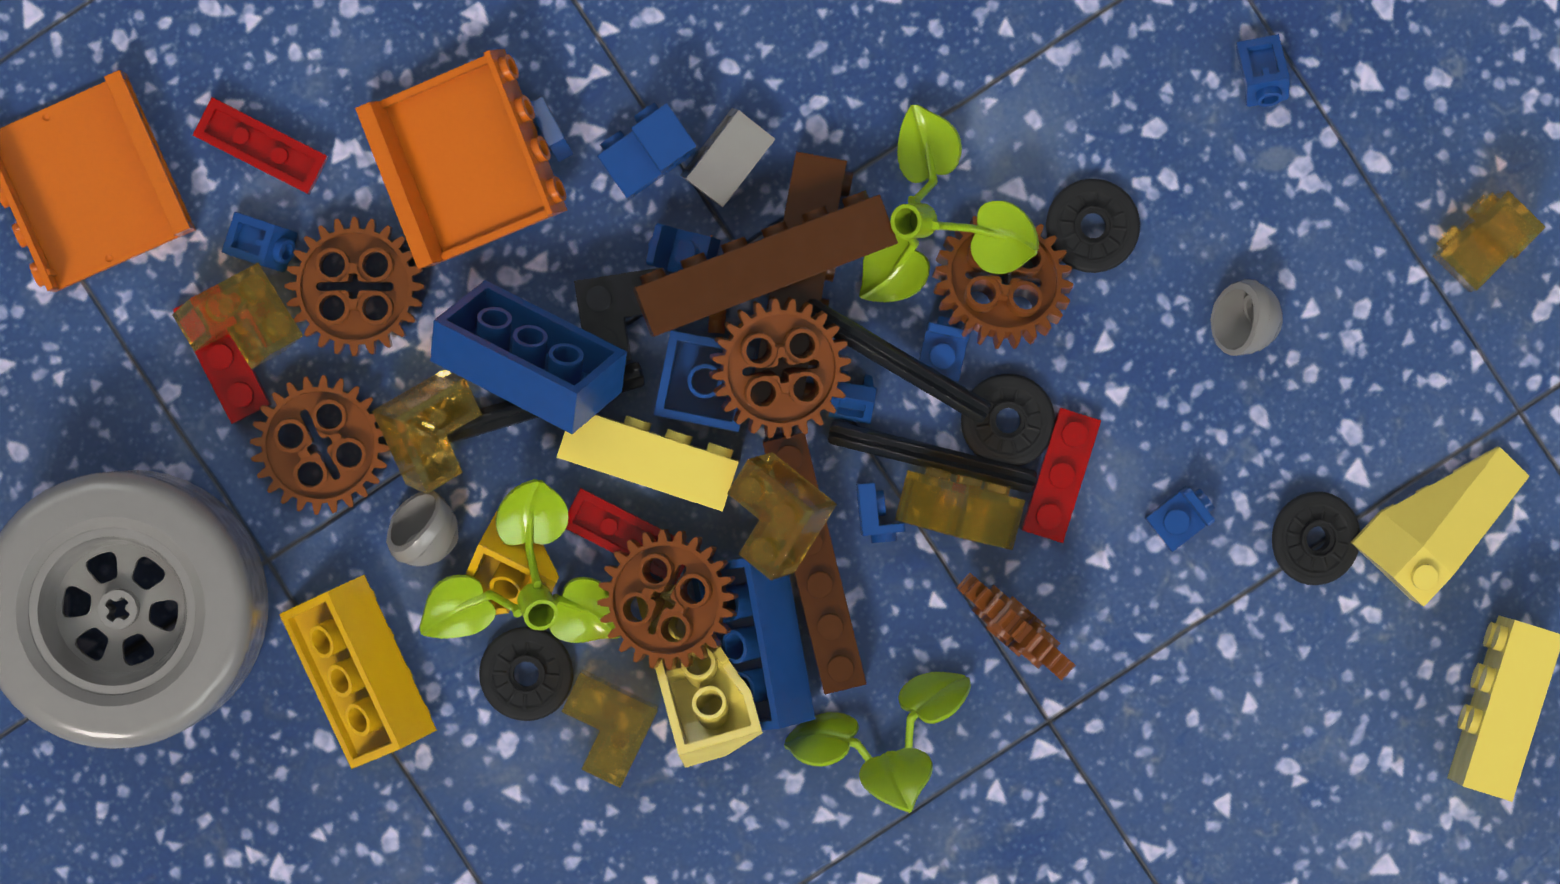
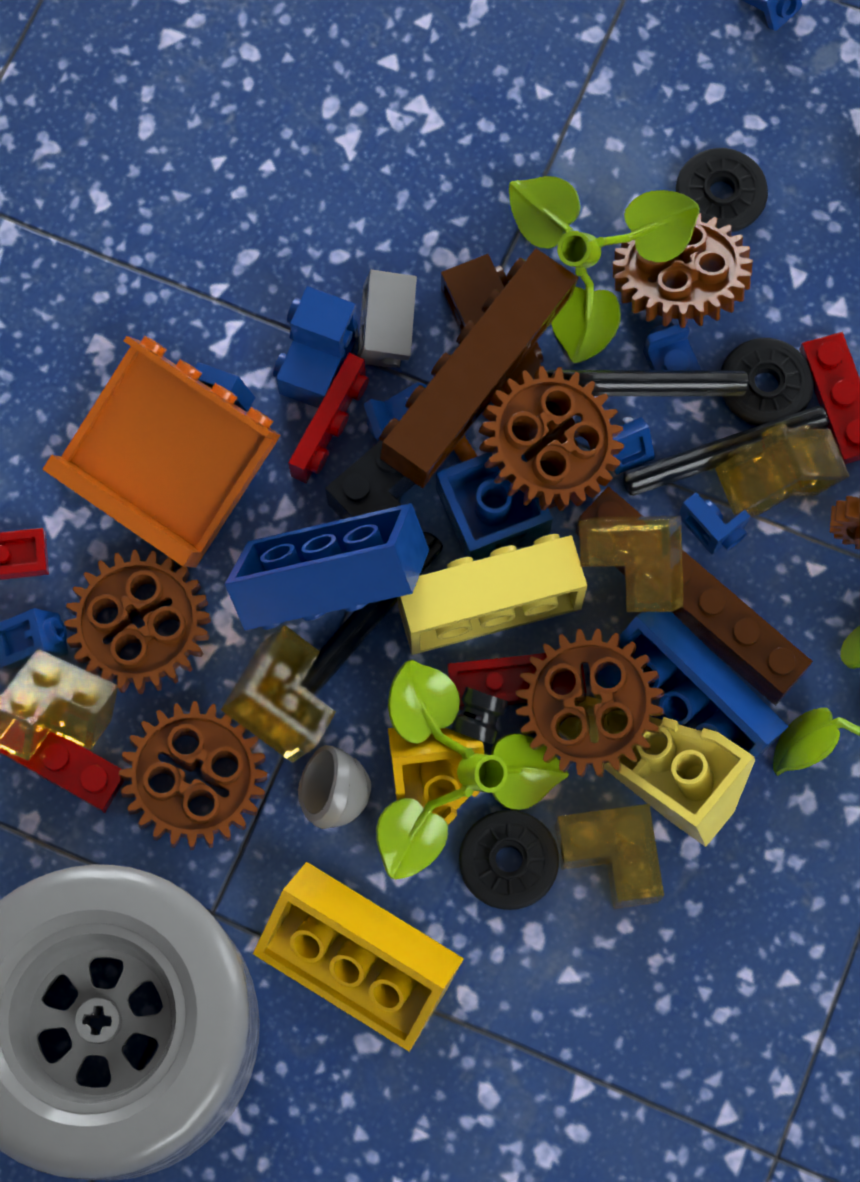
camera: 35 degrees left, 15 degrees down
(574, 551) = (479, 704): none -> black wheel
(622, 215) = (329, 419): none -> red plate

